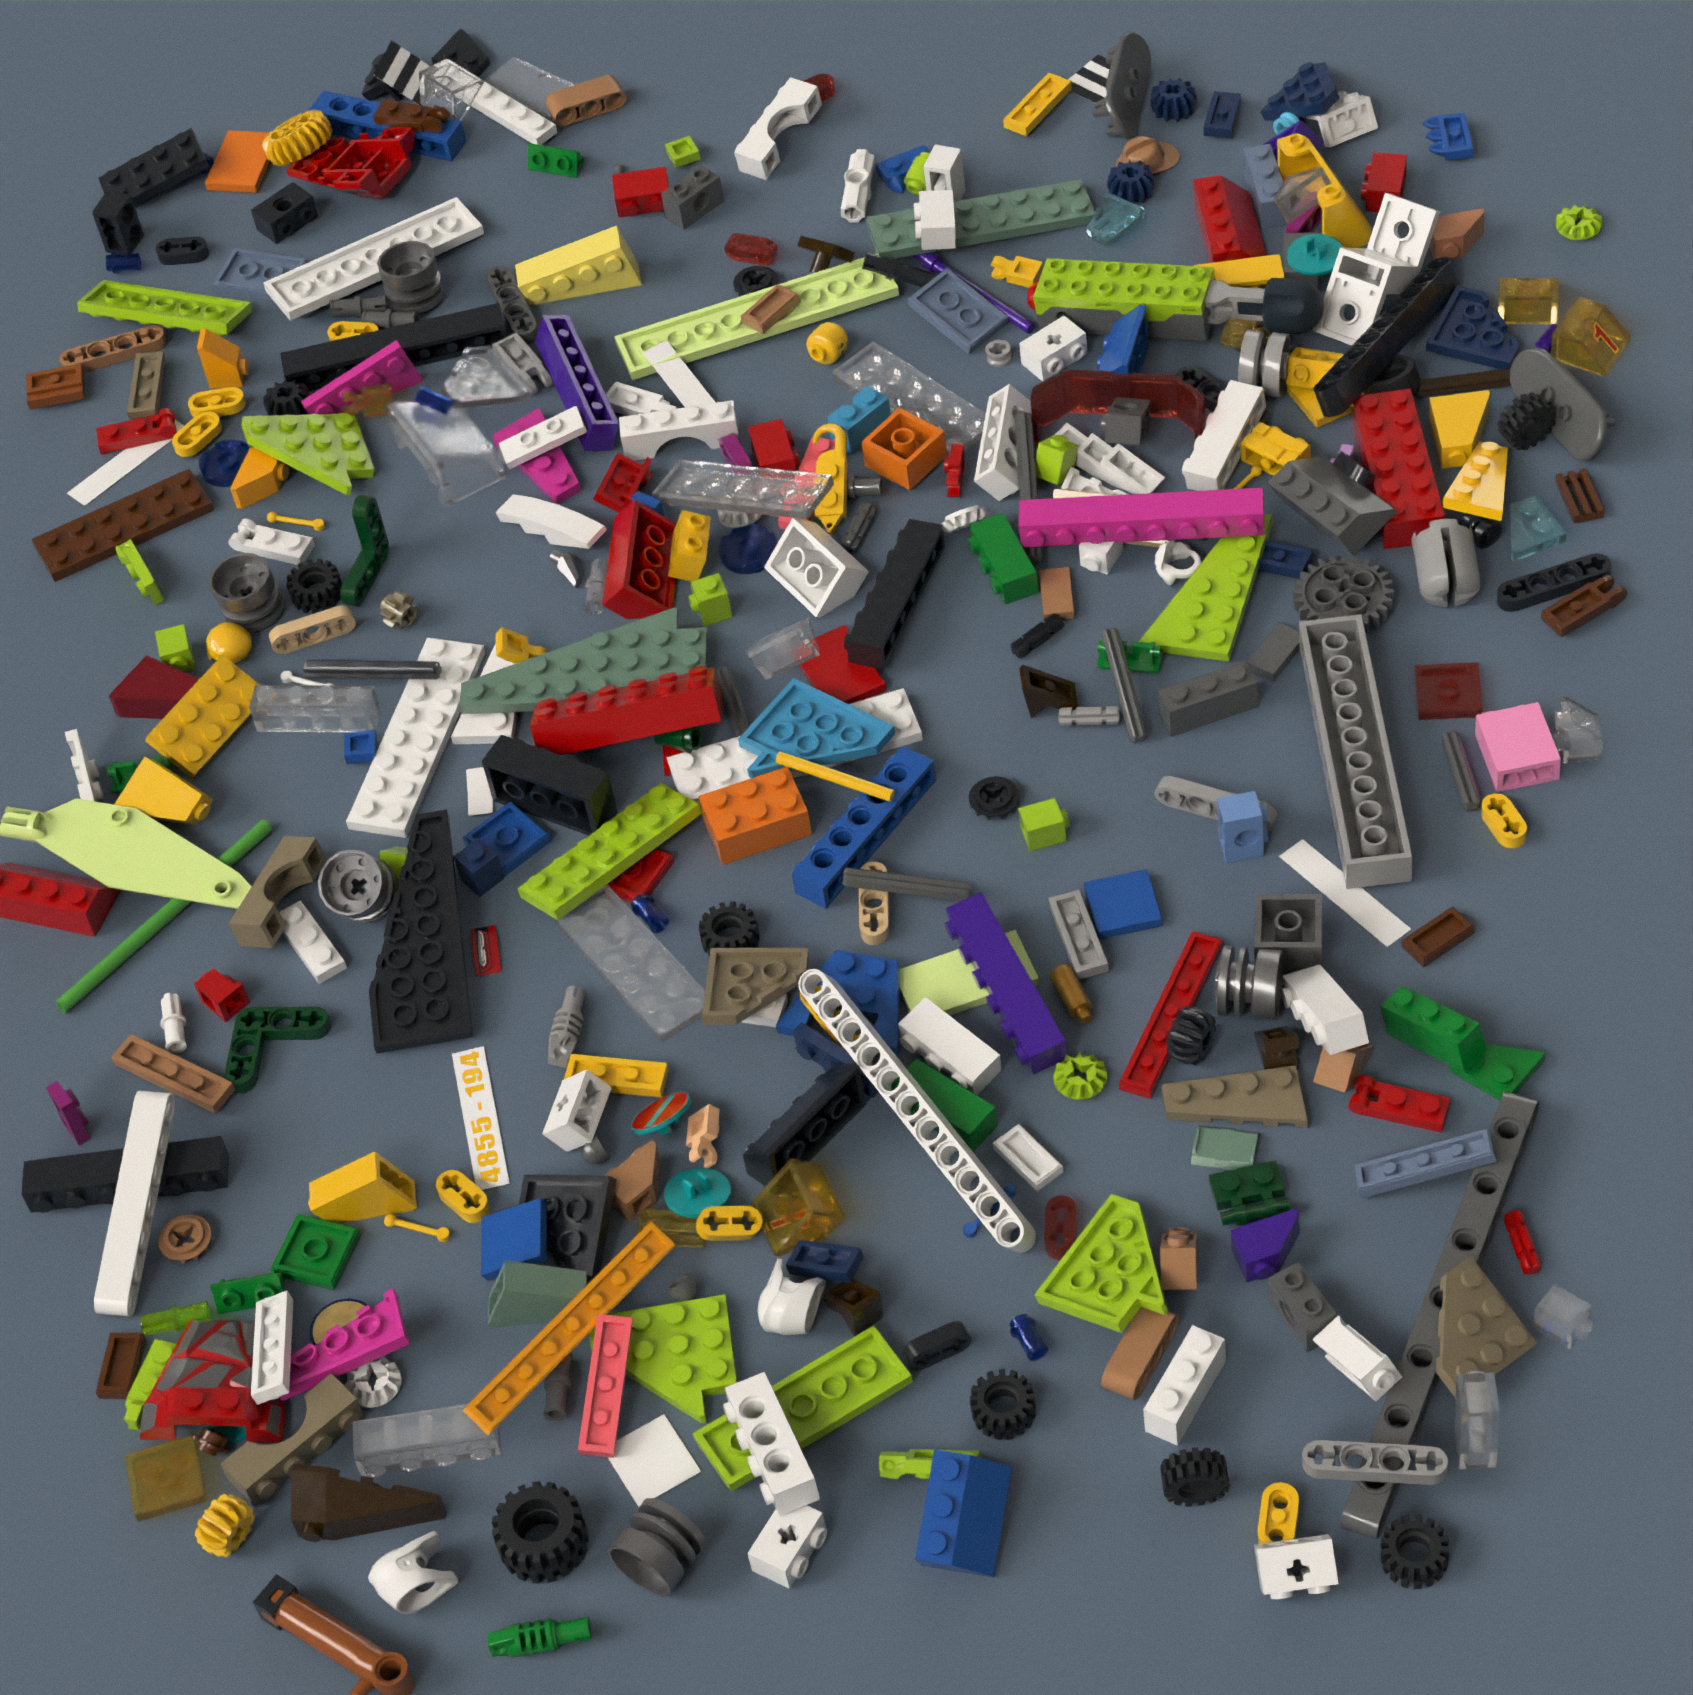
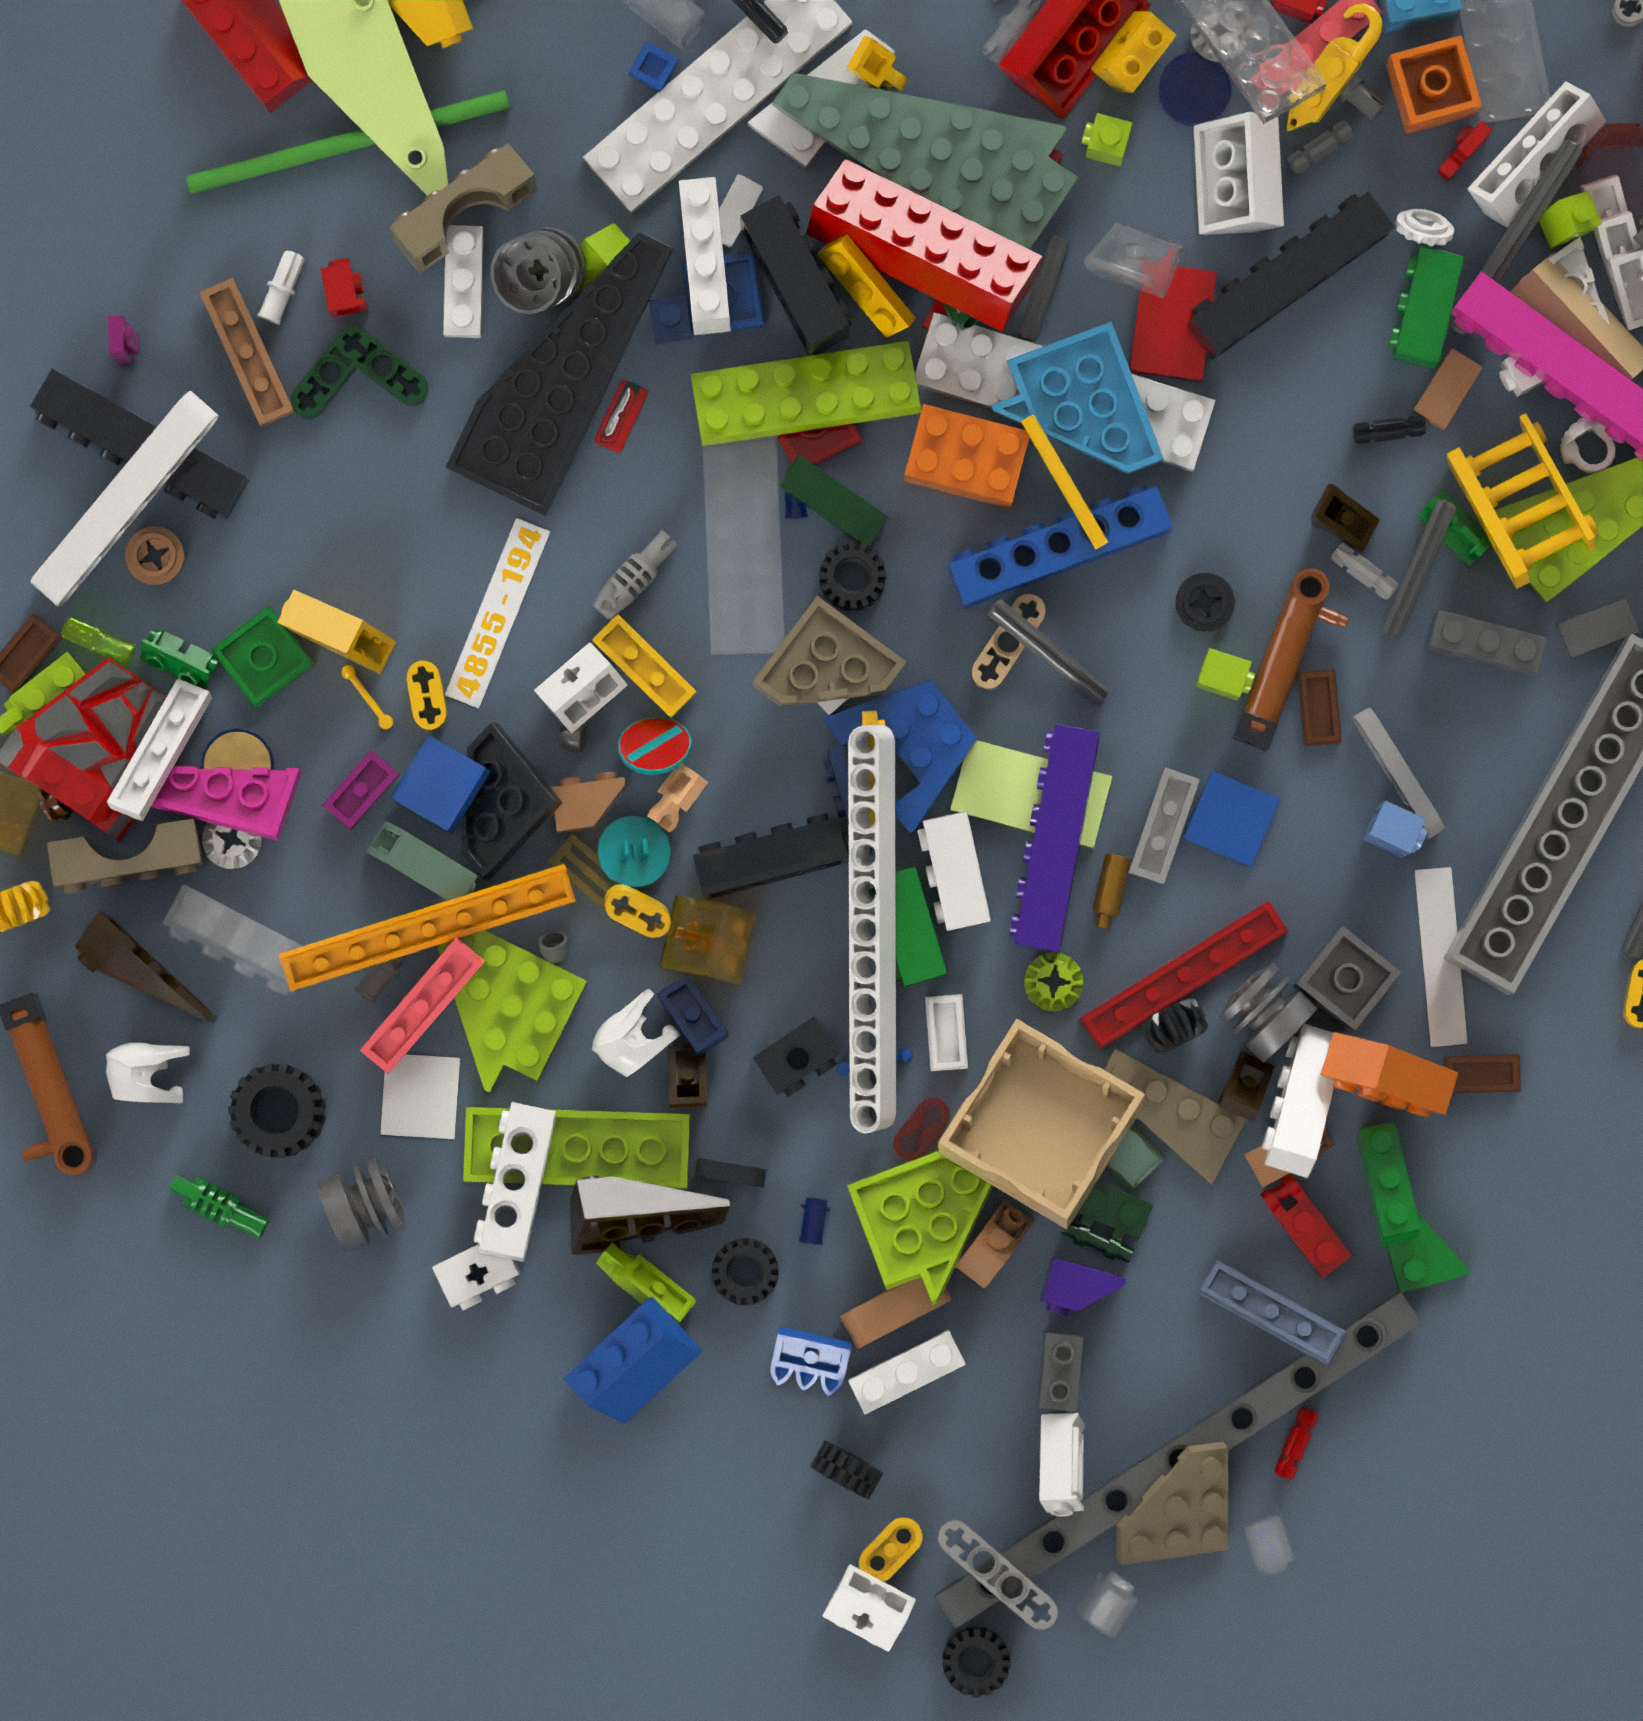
camera: 25 degrees right, 35 degrees up
(454, 1283) = (361, 790): none -> magenta plate
(483, 816) = (704, 255): none -> white arch
(621, 766) = (866, 286): none -> yellow plate
(676, 894) = (832, 501): none -> dark green tile
(884, 1414) = (624, 1209): none -> dark brown wedge
(926, 1220) = (809, 1037): none -> black brick
(1090, 830) = (1282, 660): none -> dark orange piece
(1102, 1427) = (810, 1357): none -> plate
(1127, 807) = (1319, 707): none -> reddish brown tile
(1146, 1150) = (1041, 1124): none -> tan tile
(1160, 629) = (1502, 530): none -> yellow fence
(1368, 950) = (1388, 1075): none -> orange brick

